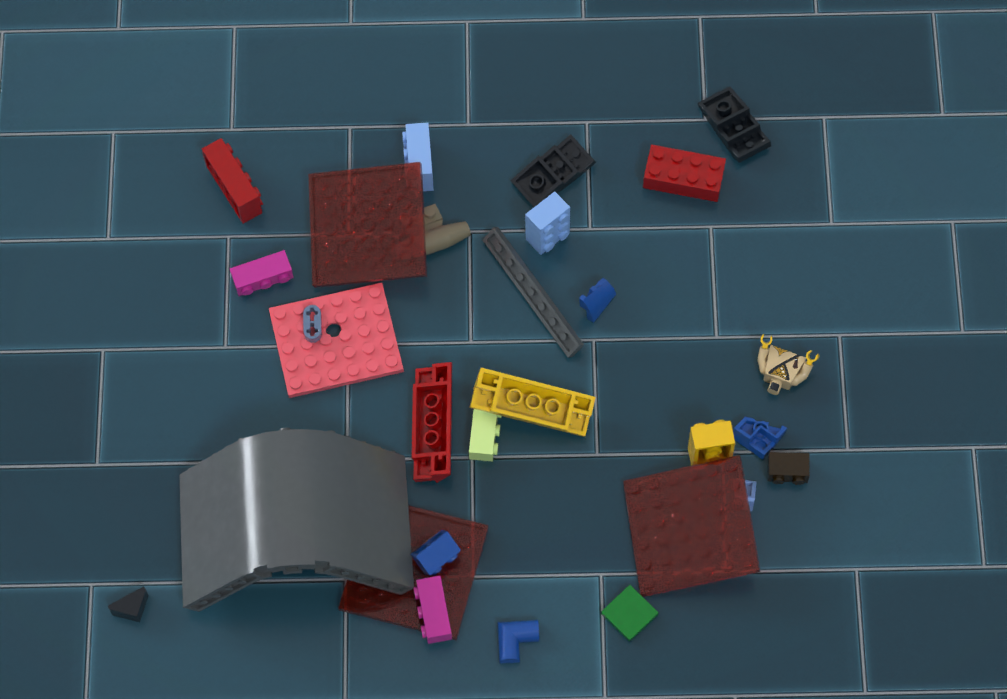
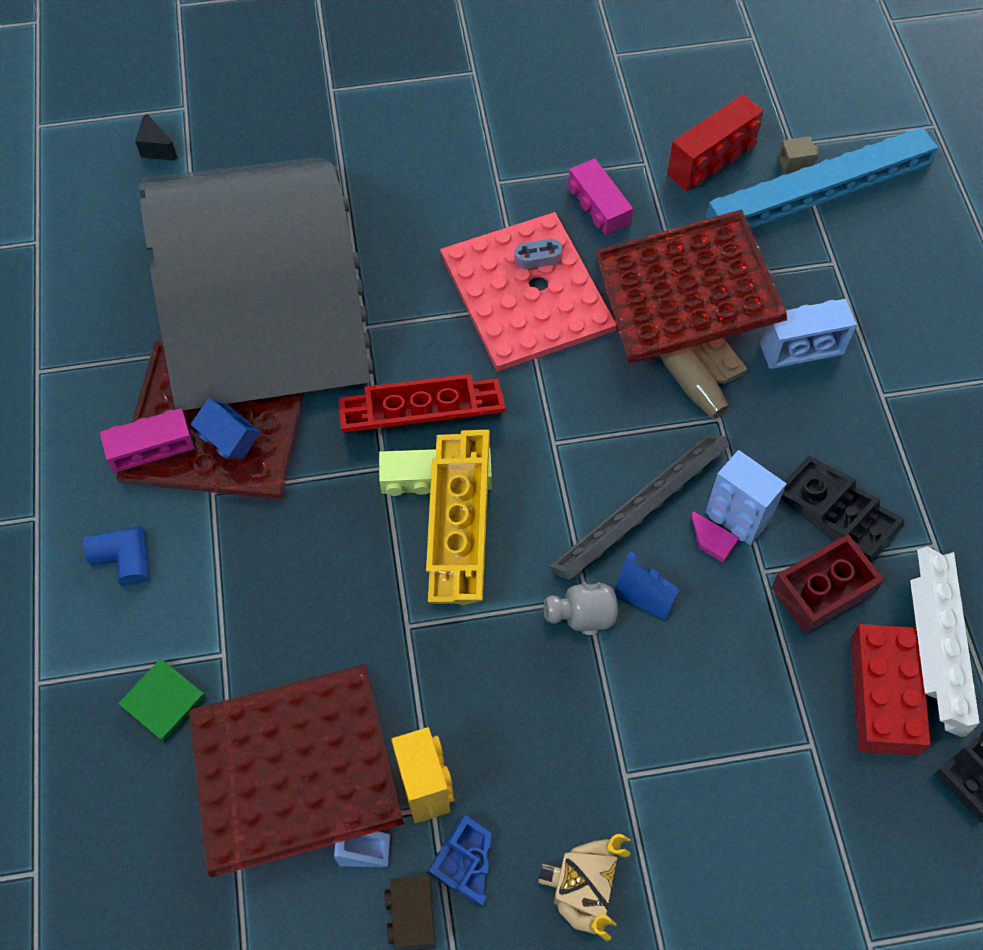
camera: 80 degrees right, 5 degrees down
(249, 127) = (797, 154): none -> dark tan brick
(279, 117) = (829, 179): none -> dark azure brick
(562, 253) = (713, 538): none -> dark pink tile
(604, 338) = (584, 607): none -> light grey piece
(610, 190) = (827, 583): none -> dark red brick
(659, 131) = (944, 641): none -> white slope

